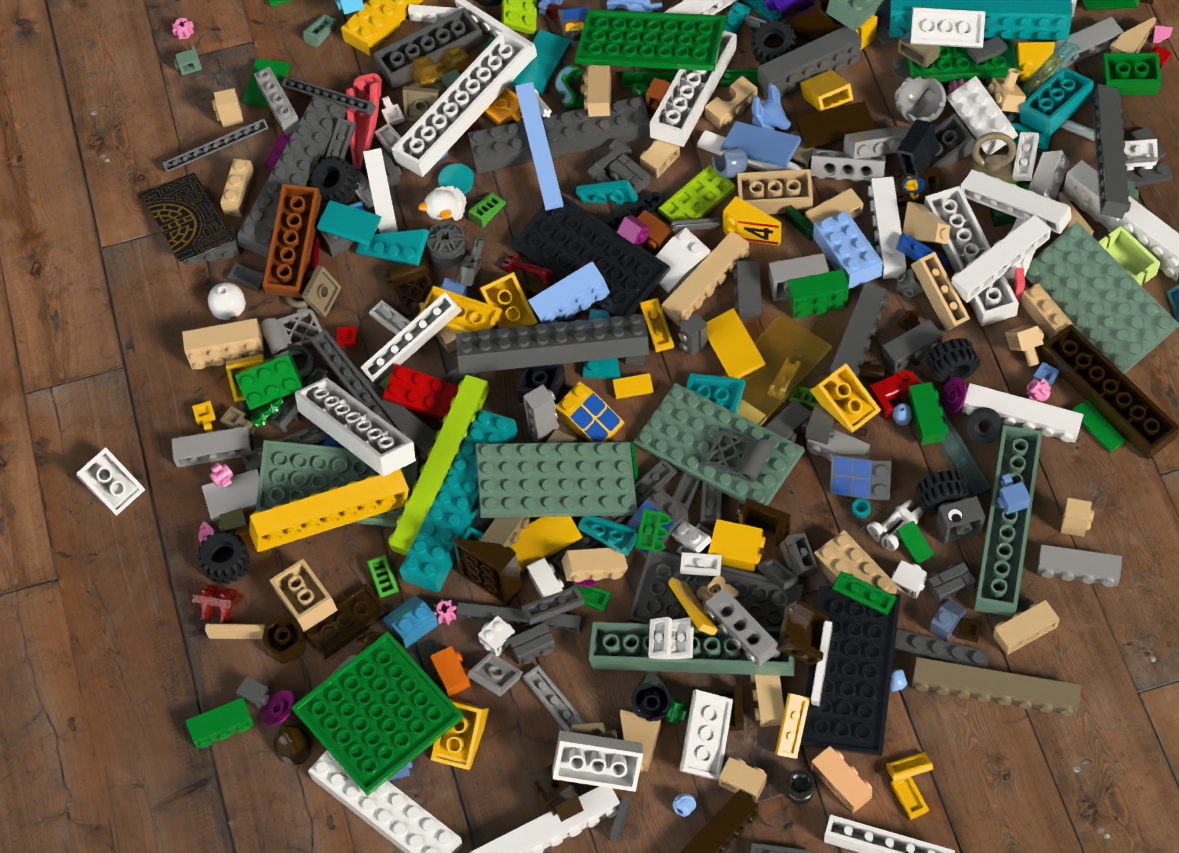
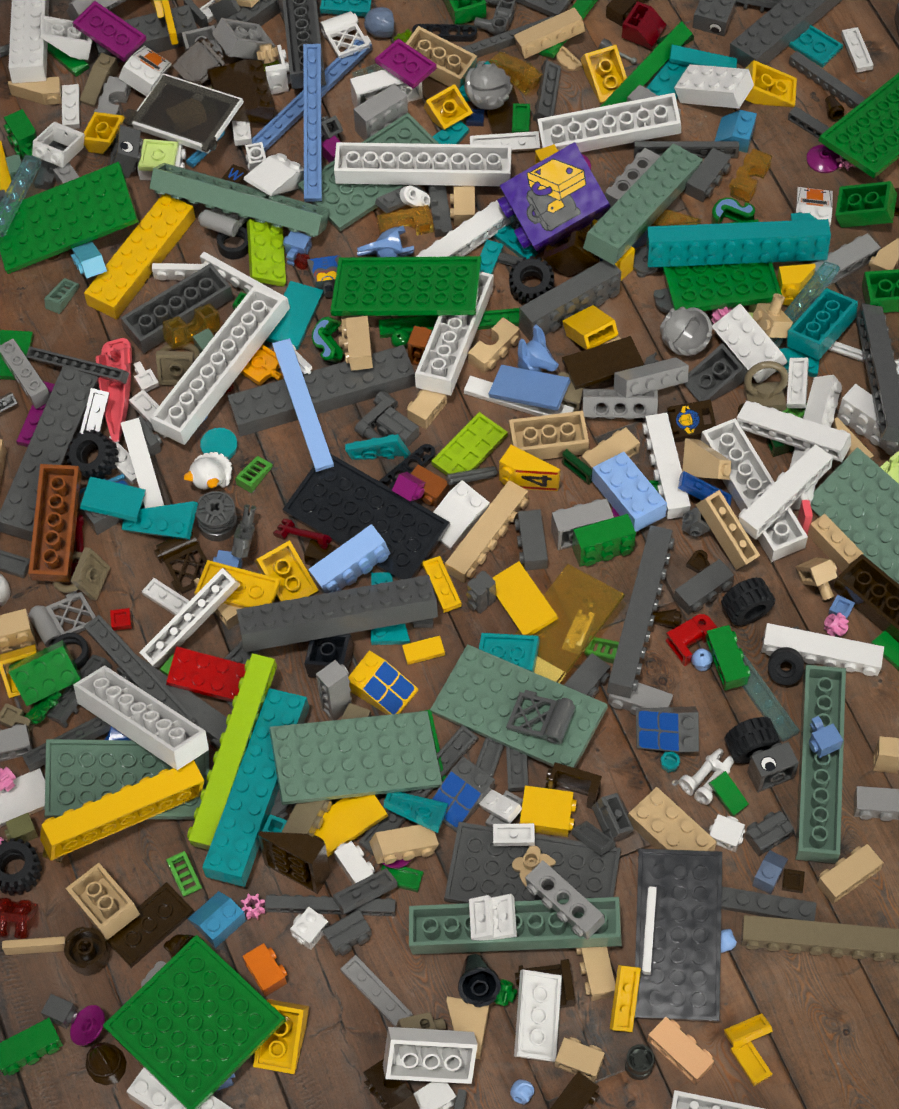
camera: 10 degrees left, 0 degrees up
(495, 674) = (312, 969): light grey tile -> none
(652, 530) = (459, 803): green plate -> none
(692, 606) = (511, 881): yellow tile -> none
(730, 162) = (501, 409): sand blue piece -> none
(802, 632) = (627, 901): dark brown panel -> none
(845, 398) = (645, 649): yellow slope -> none
(864, 593) = (685, 853): green tile -> none
(917, 148) = (689, 382): black brick -> none
(920, 54) = (679, 277): dark tan brick -> none
(947, 27) = (708, 256): white tile -> none
(953, 395) = (751, 636): magenta dish -> none
(990, 49) = (748, 275): dark grey tile -> none

